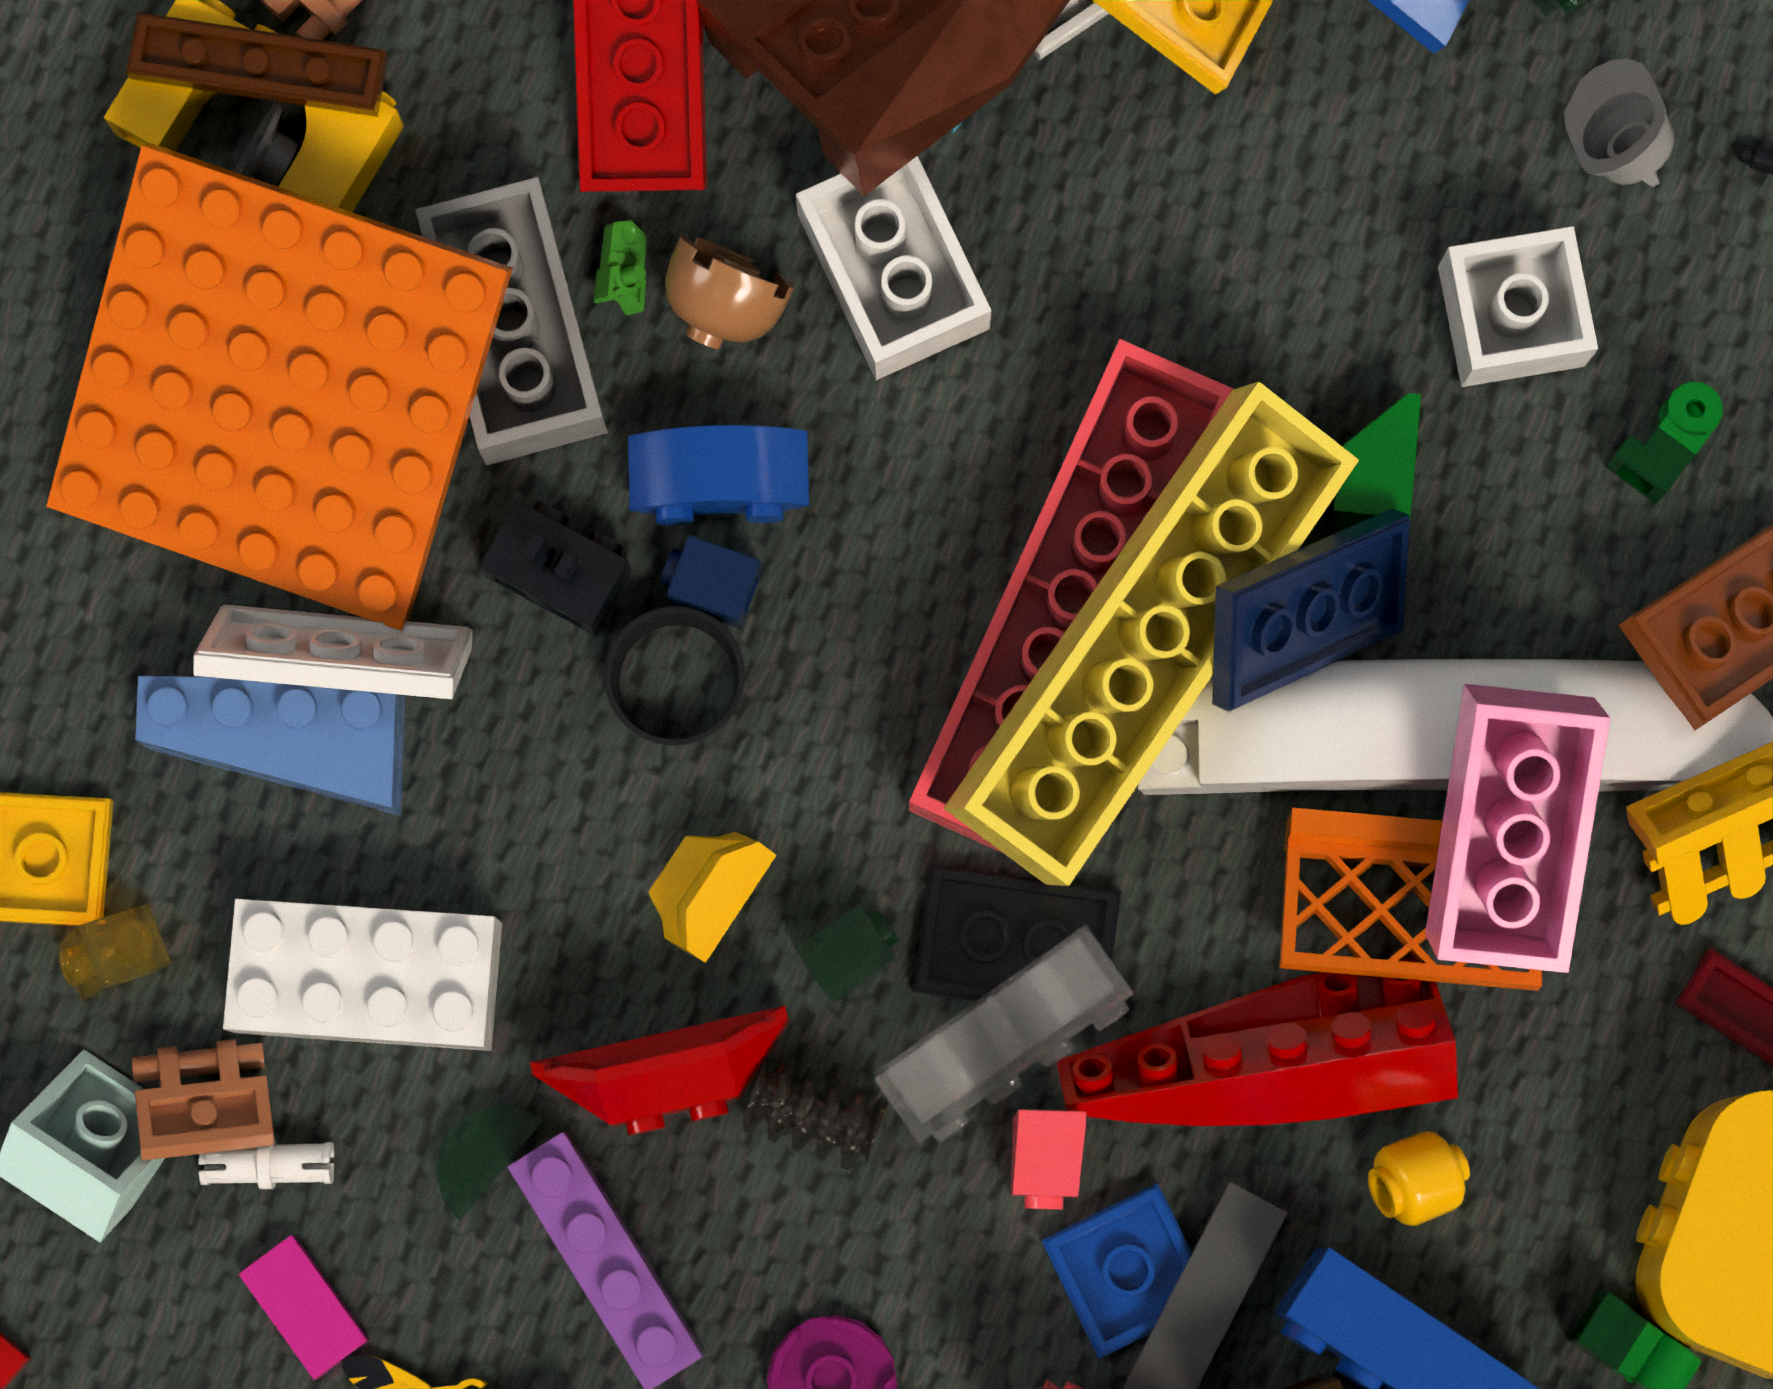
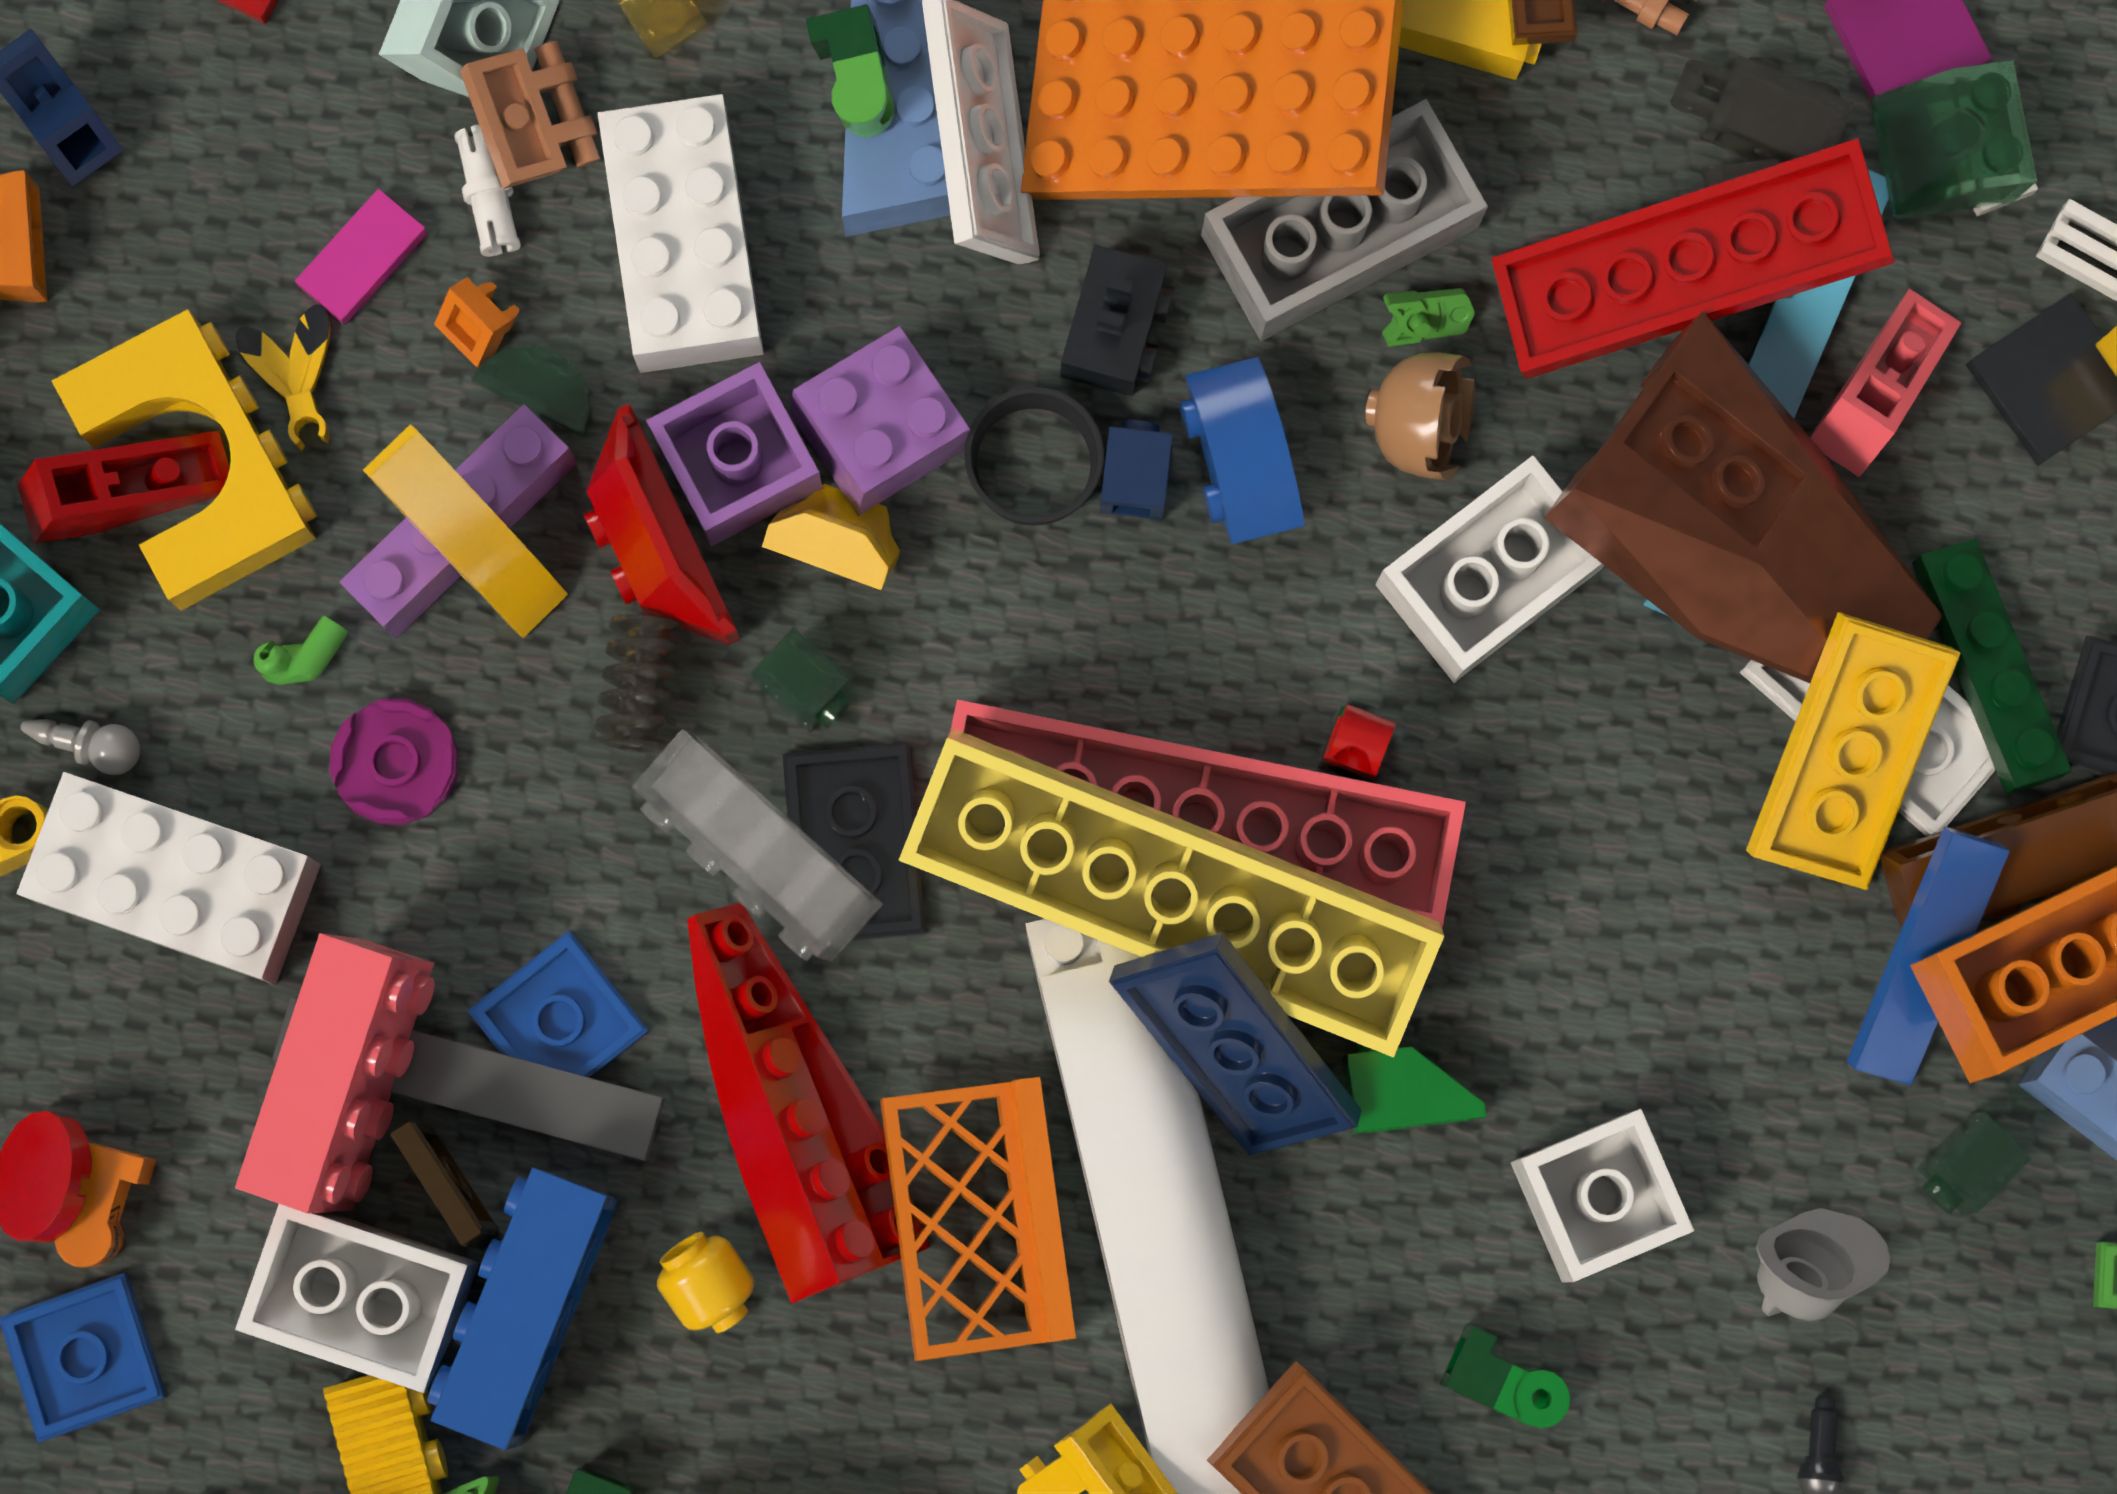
camera: 70 degrees right, 0 degrees up
(275, 754) = (862, 85): none -> leg
(401, 1204) = (474, 320): none -> orange tile
(603, 819) = (878, 420): none -> medium lavender brick
(604, 969) = (735, 454): none -> medium lavender brick
(629, 1250) = (465, 531): none -> yellow slope
(1034, 430) = (1356, 744): none -> red leg
(1047, 1156) = (644, 909): coral slope -> none
(1516, 827) = (1059, 1292): bright pink brick -> none

